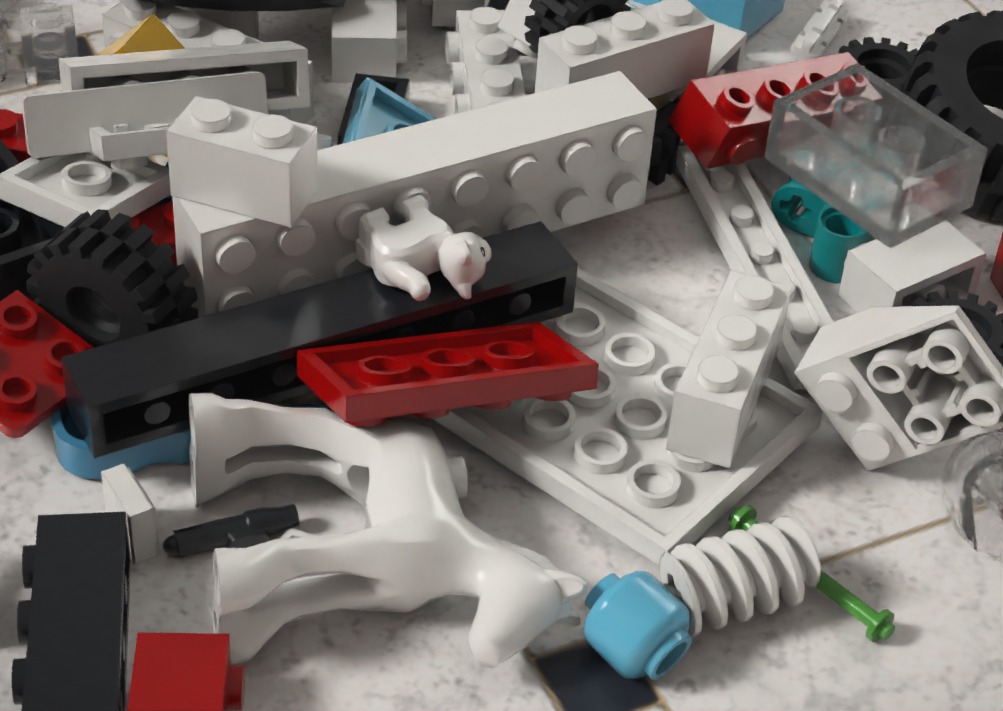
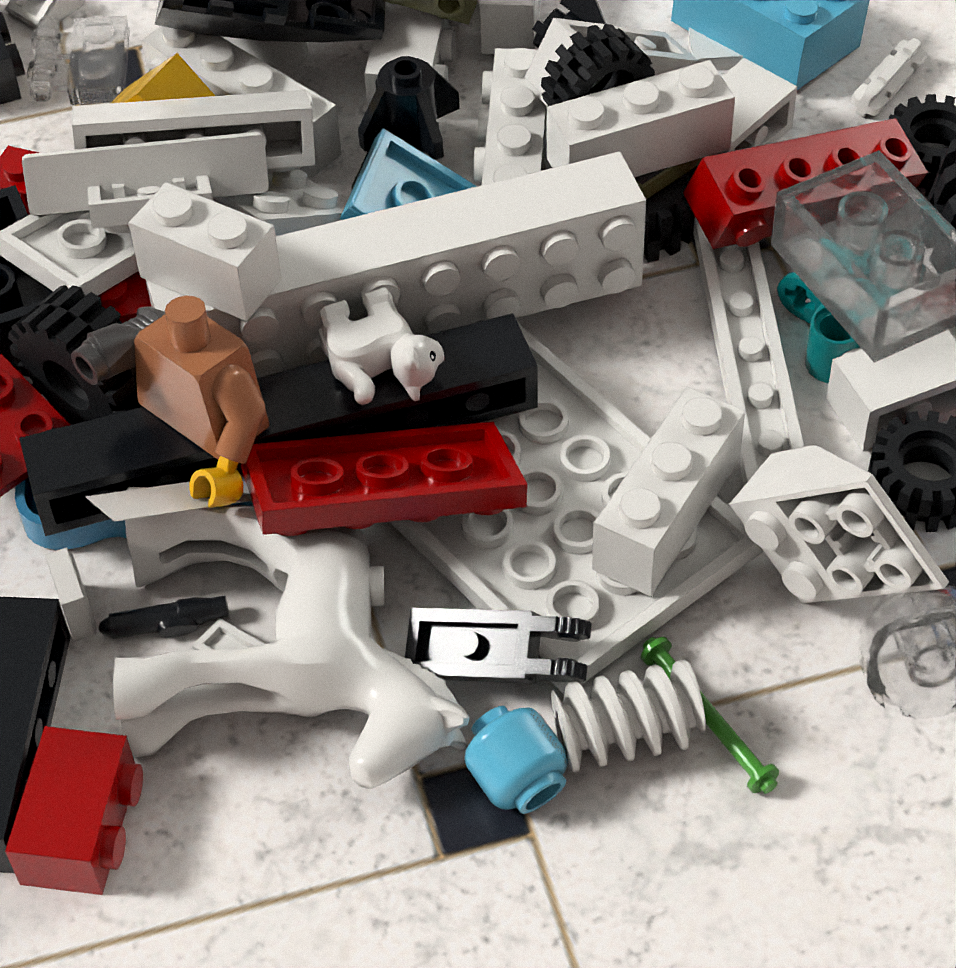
camera: 15 degrees right, 10 degrees up
(241, 399) = (159, 501): none -> white sticker
(242, 283) = (191, 379): none -> nougat torso
(388, 52) = (407, 105): none -> black brick
(591, 519) = (492, 645): none -> hinge

